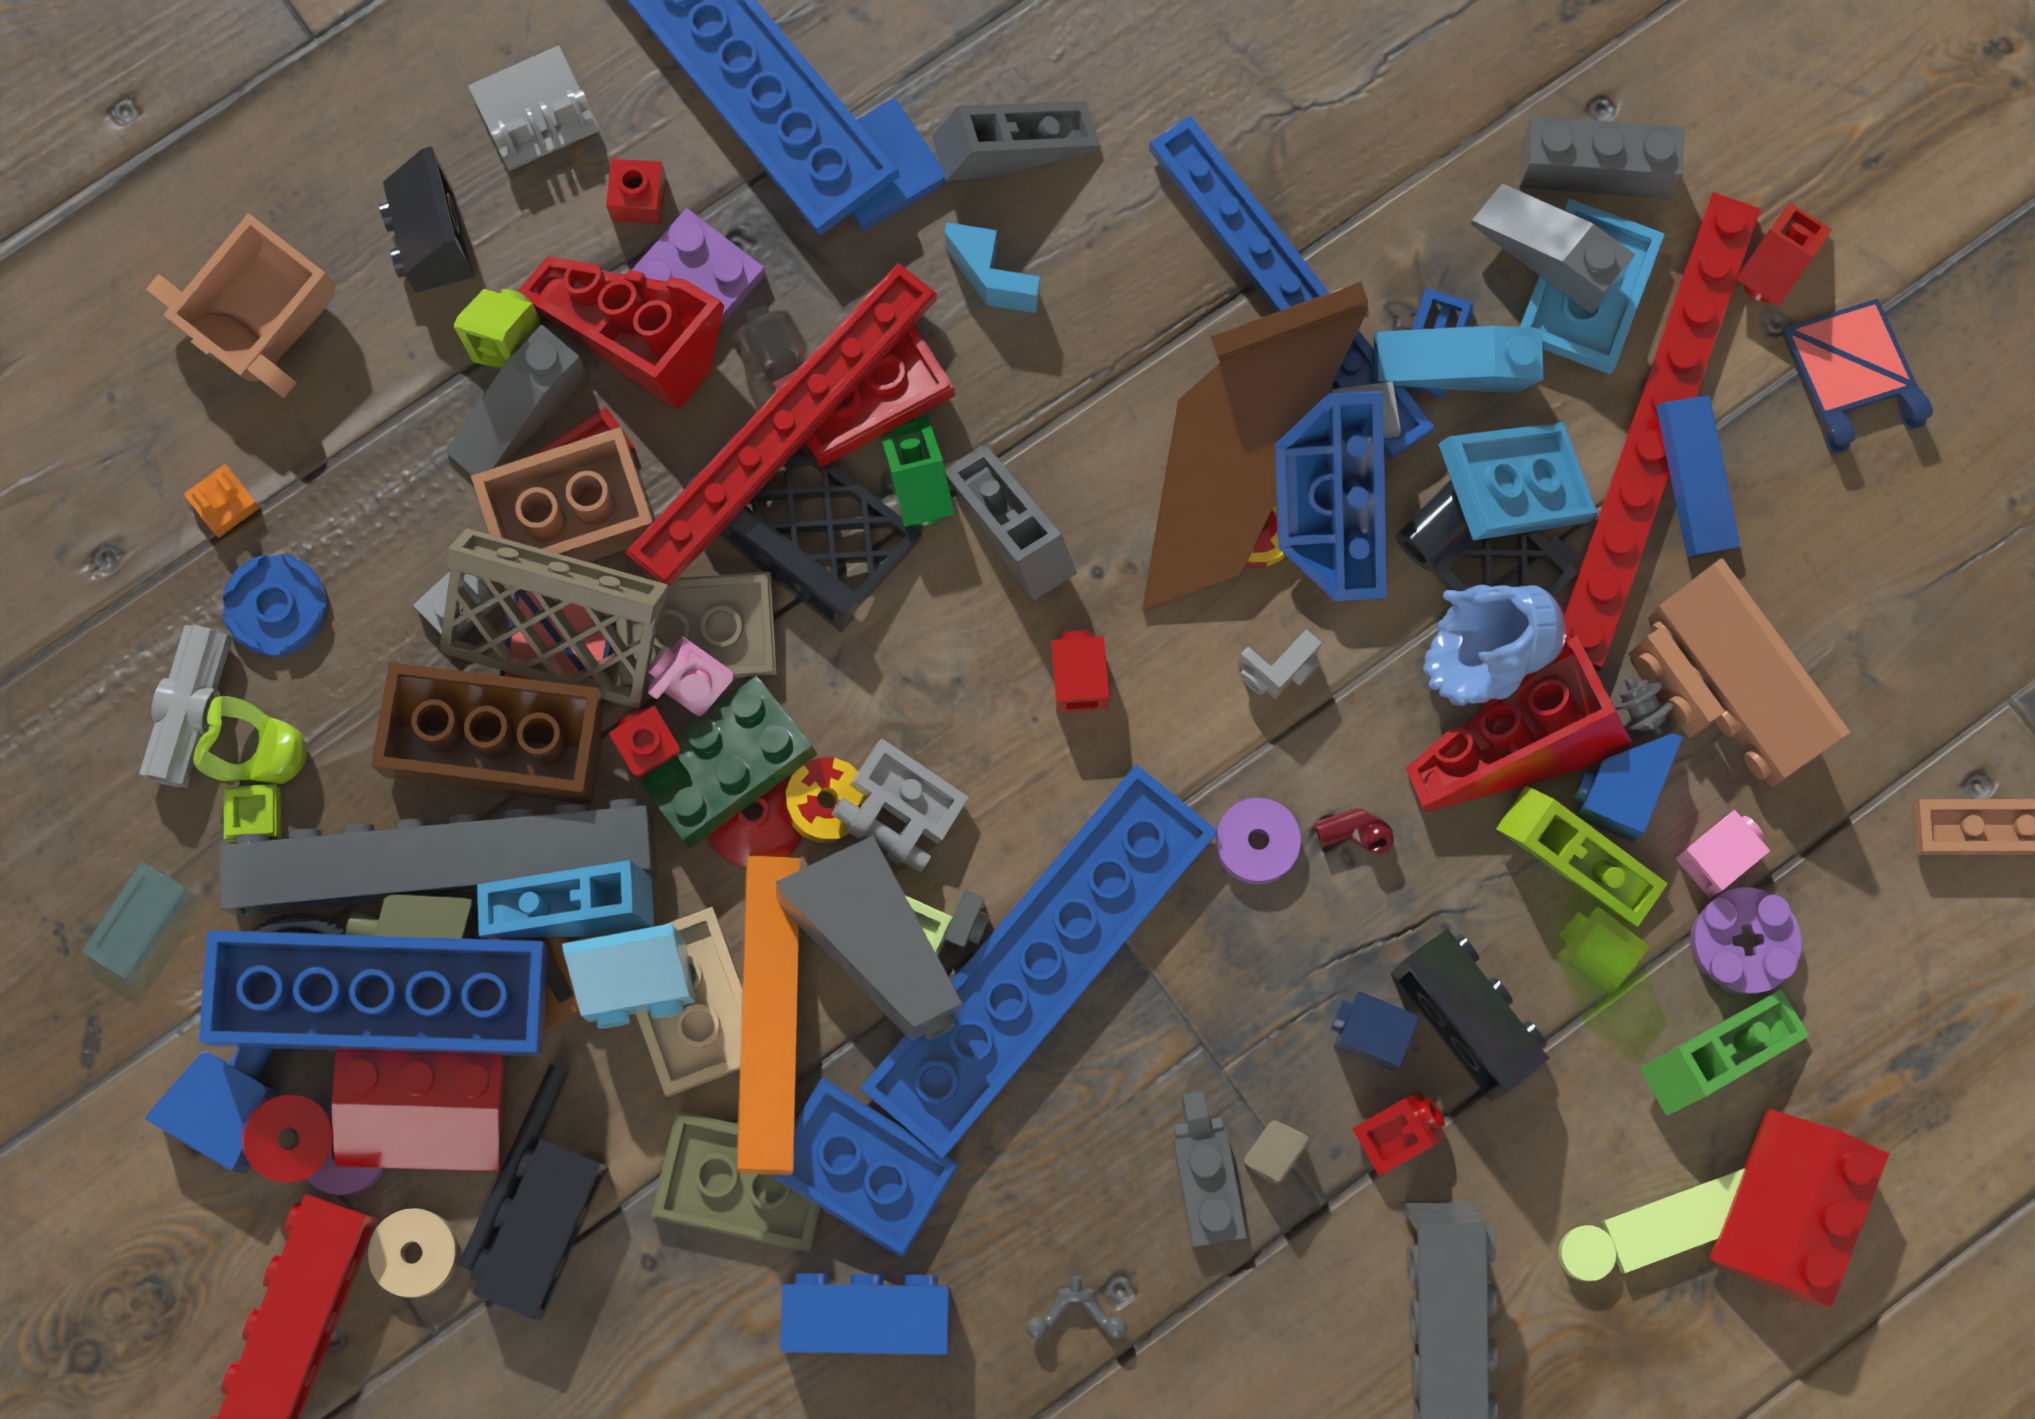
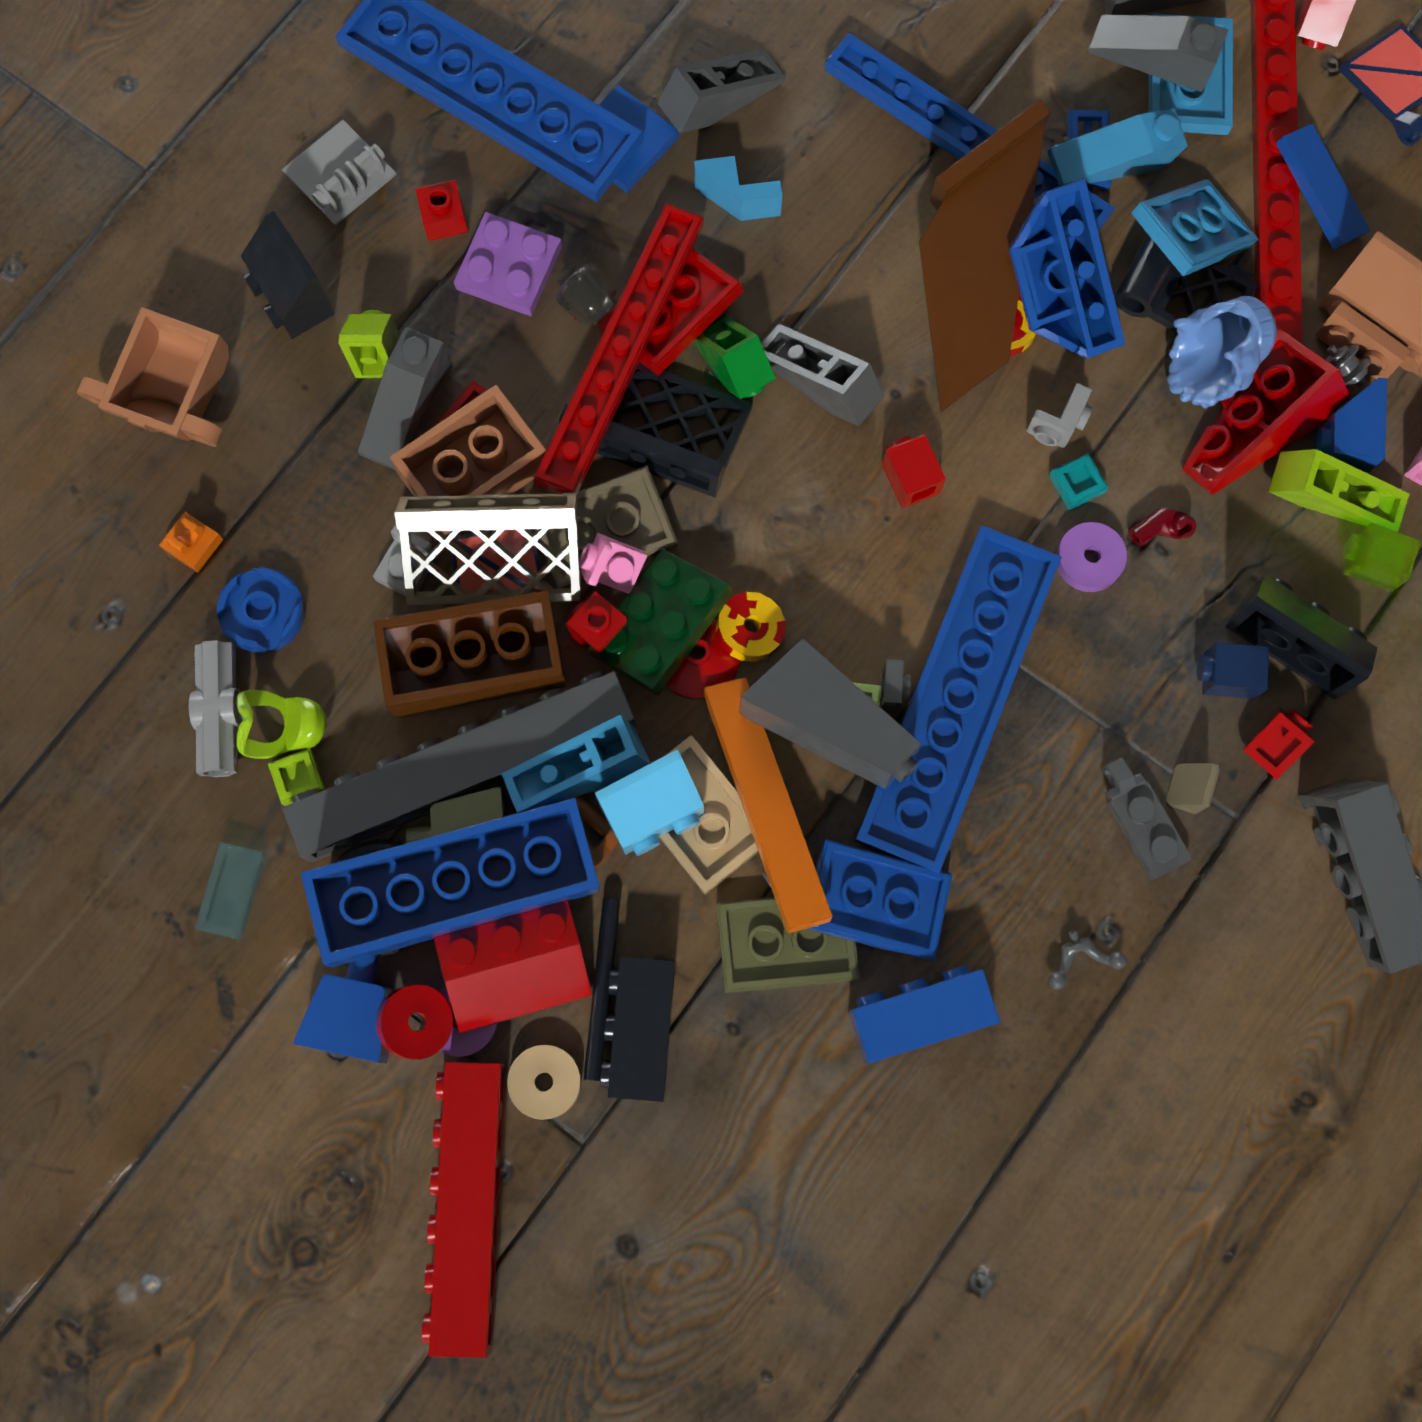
camera: 20 degrees left, 0 degrees up
(641, 326) = (483, 311): red wedge -> none
(909, 793) = (815, 601): light grey plate -> none
(1275, 745) = (1078, 481): none -> teal tile

